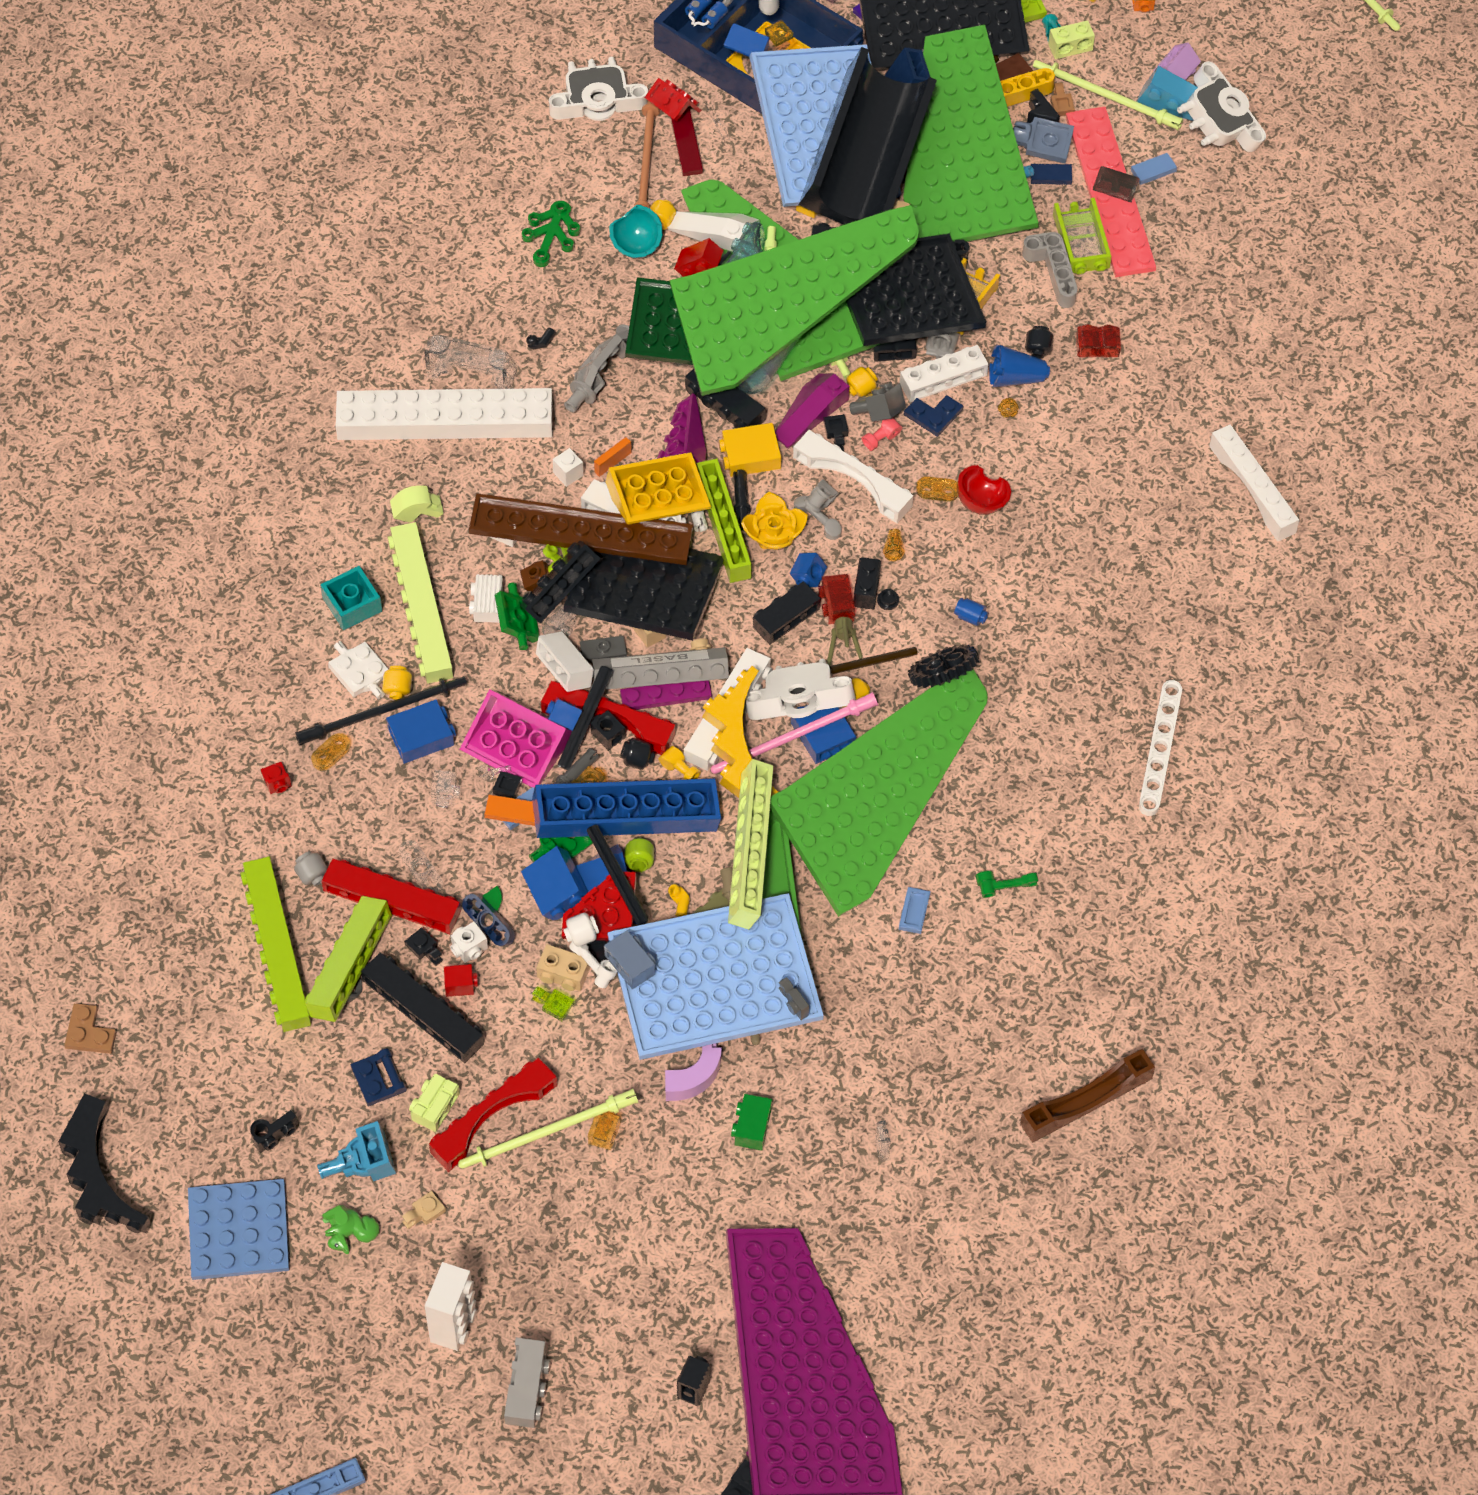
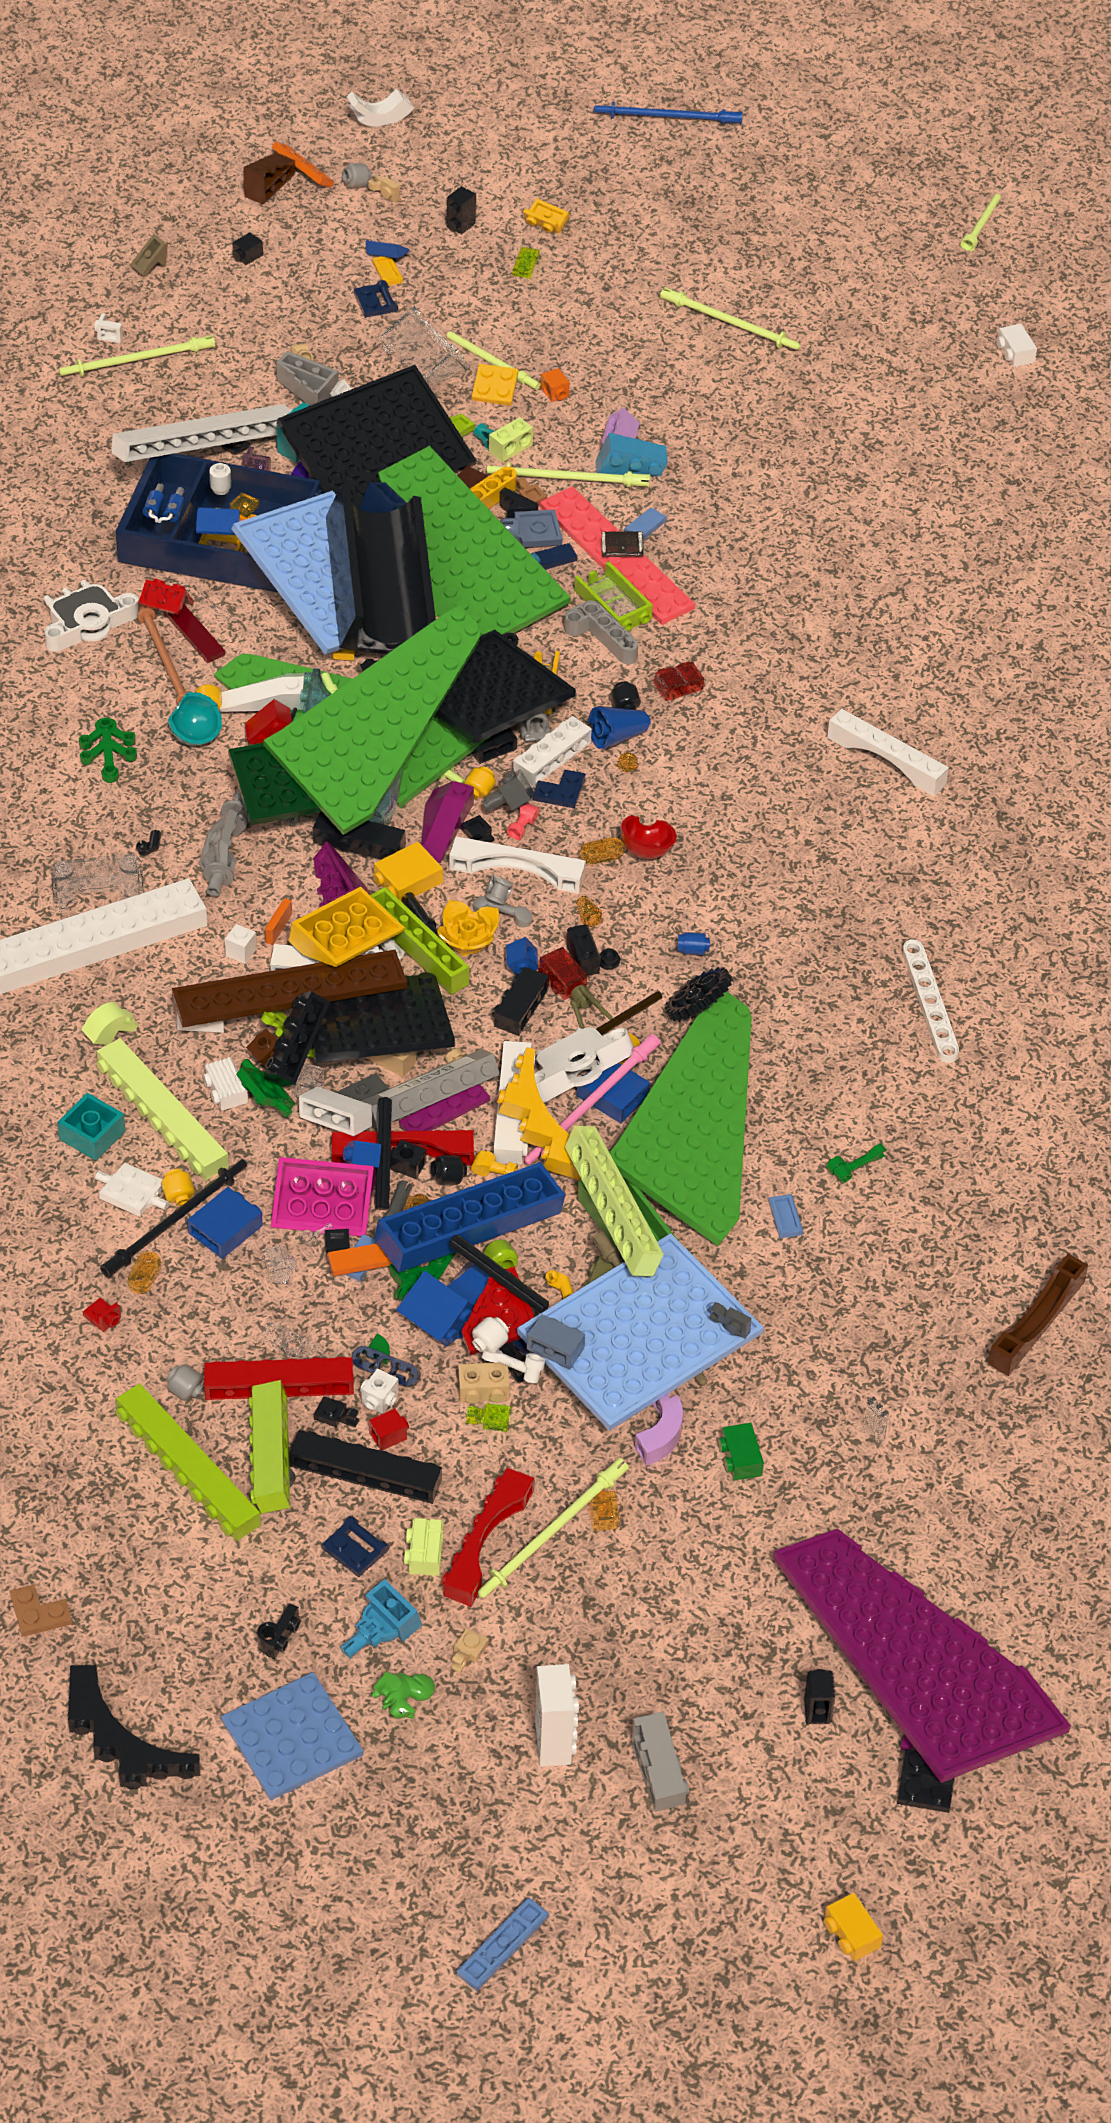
camera: 25 degrees left, 10 degrees down
(1220, 115) = (682, 460): white piece -> none

